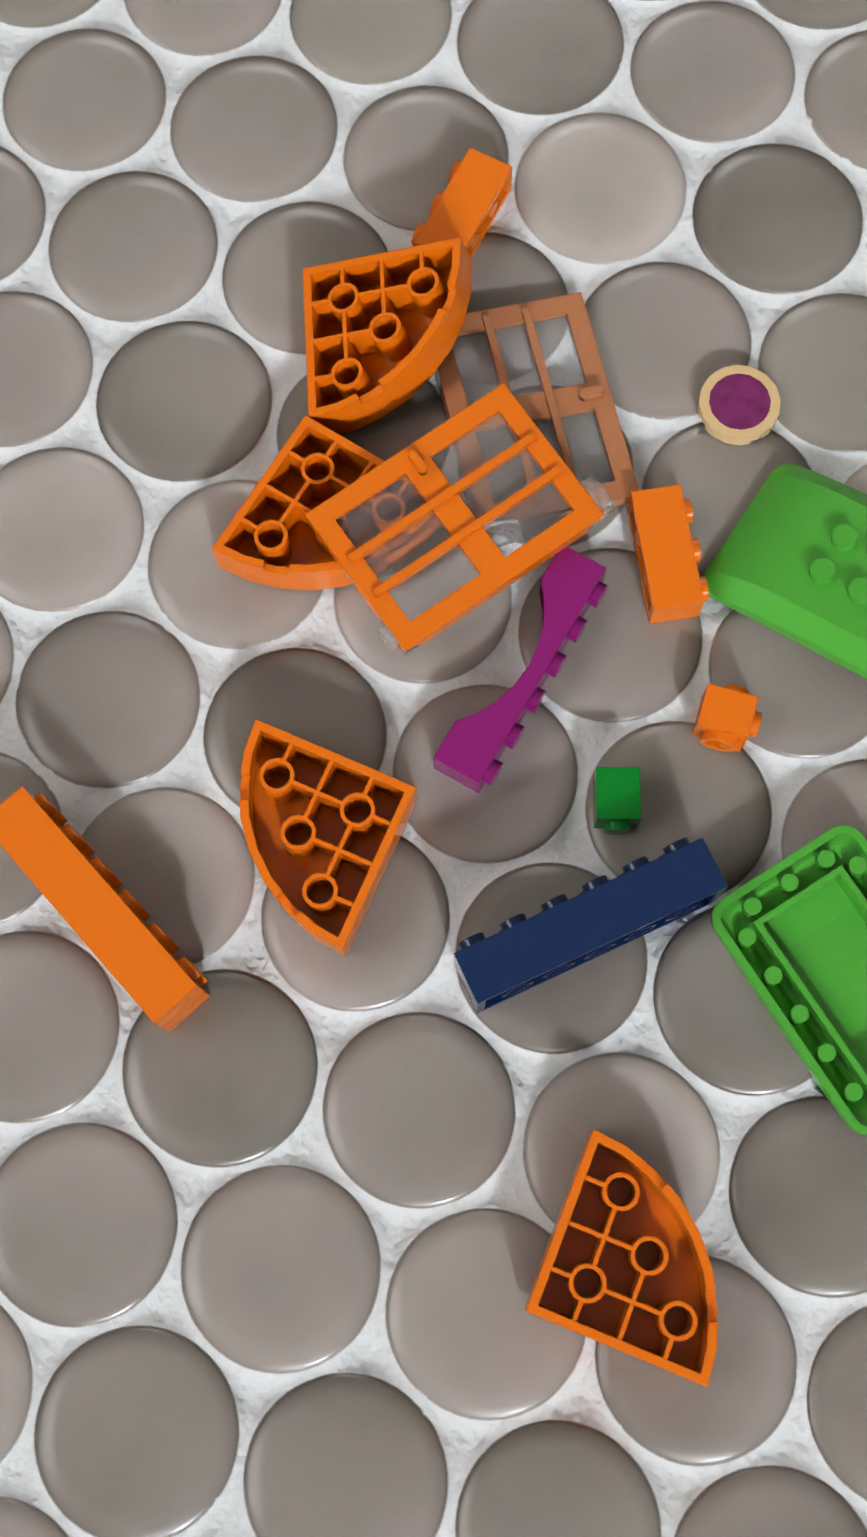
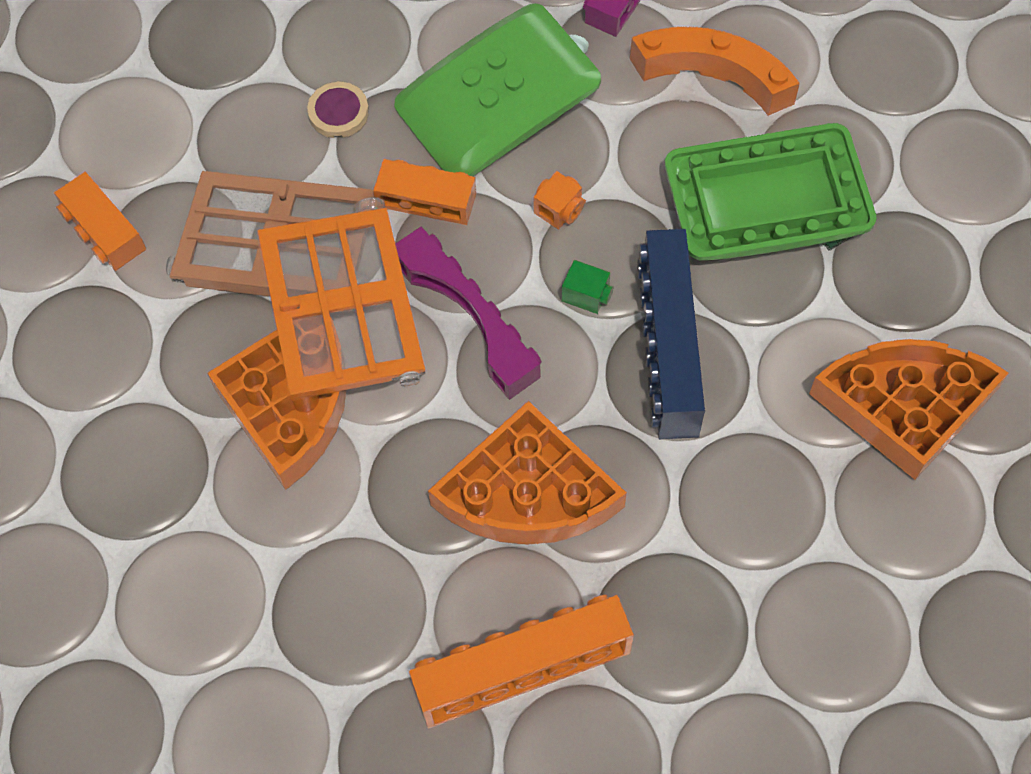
camera: 70 degrees left, 10 degrees down
(380, 328) = (162, 301): orange brick -> none

